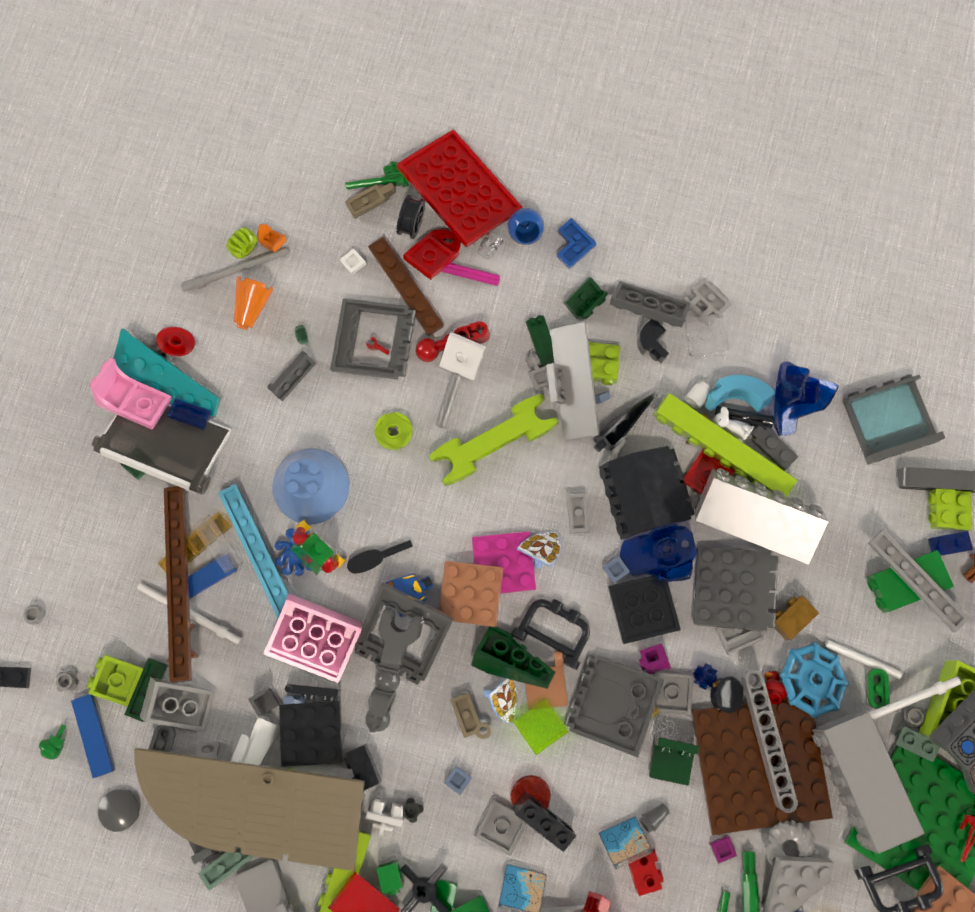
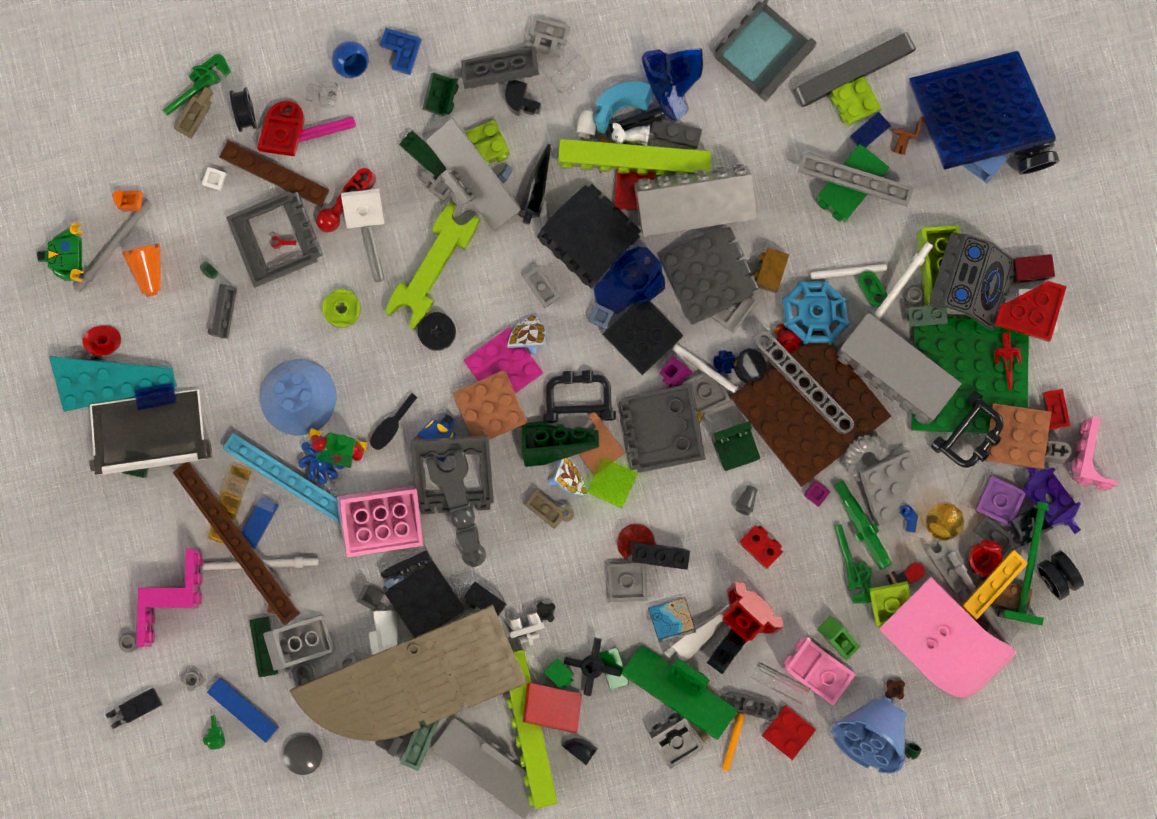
camera: 30 degrees left, 5 degrees up
(87, 595) = (169, 598): none -> dark pink bracket
(114, 679) = (233, 653): lime plate -> none
(128, 397) = (96, 411): bright pink bracket -> none
(191, 253) = (65, 254): none -> green torso
(242, 243) = (105, 219): lime gear -> none
(457, 780) = (569, 565): sand blue plate -> none
(459, 187) = (269, 57): red plate -> none
(461, 488) = (428, 338): none -> black plate
(625, 842) = (733, 533): tile -> none
(684, 672) = (705, 368): none -> white bar

